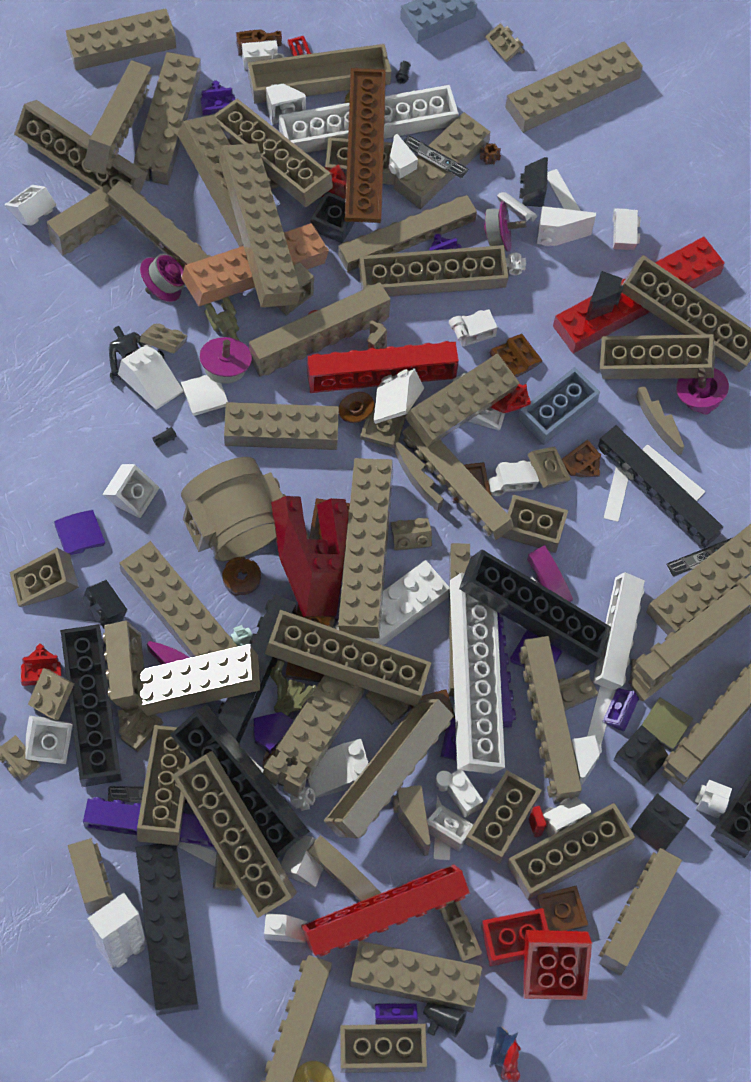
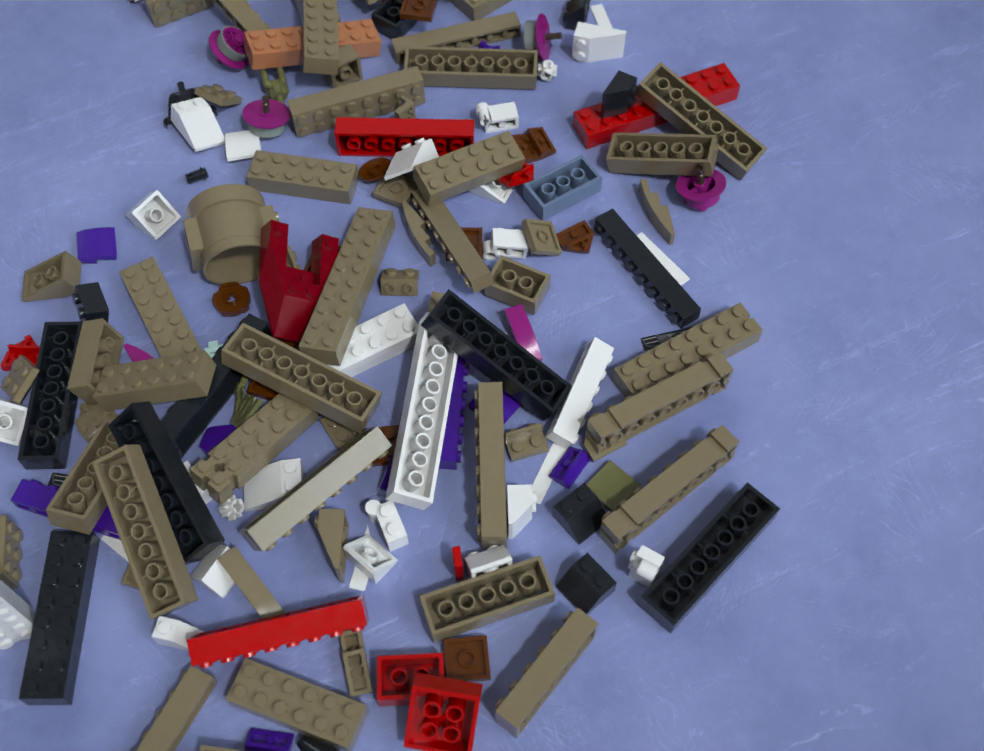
camera: 15 degrees right, 5 degrees down
(503, 816) = (424, 554): dark tan brick -> none
(517, 207) = (557, 25): white slope -> none
(616, 495) = (603, 272): white sticker -> none
(625, 229) = (653, 51): white hinge -> none

